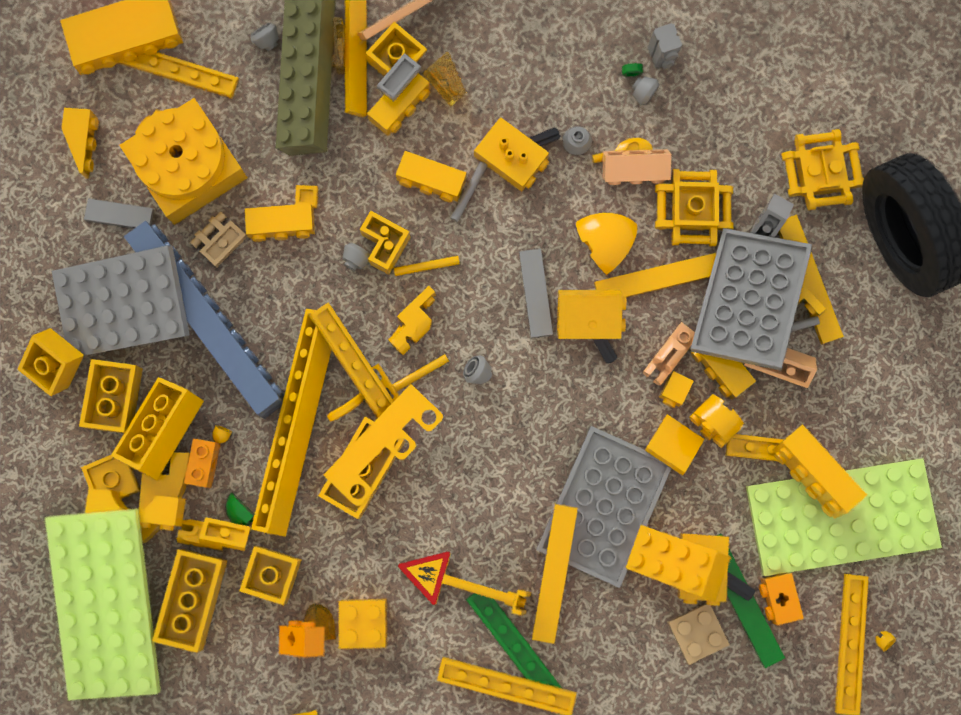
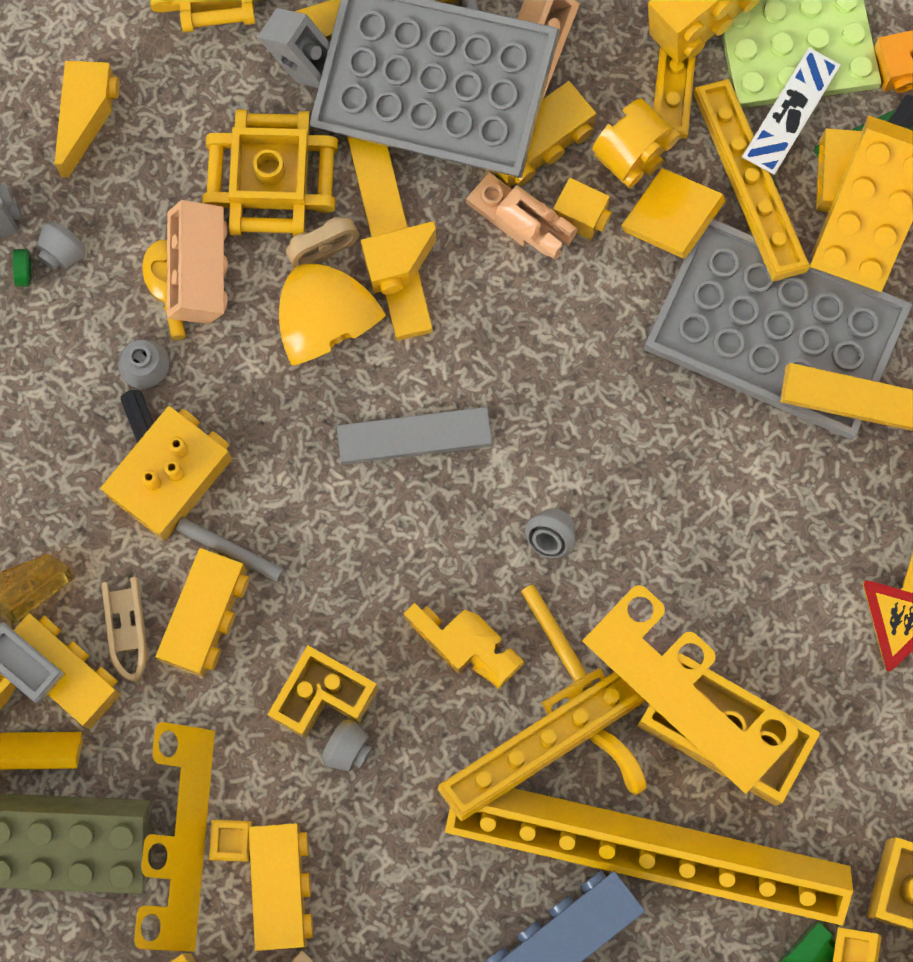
camera: 85 degrees left, 5 degrees down
(300, 172) = (186, 847): none -> yellow piece
(419, 139) = (128, 637): none -> tan piece
(429, 265) = (362, 623): yellow bar -> none
(592, 316) = (460, 338): yellow piece -> none
(641, 279) = (397, 256): none -> yellow slope
(650, 237) = (323, 242): none -> tan plate
(697, 492) = (751, 183): none -> yellow tile
(731, 99) = (84, 107): none -> yellow slope
(742, 518) = (791, 111): none -> white sticker

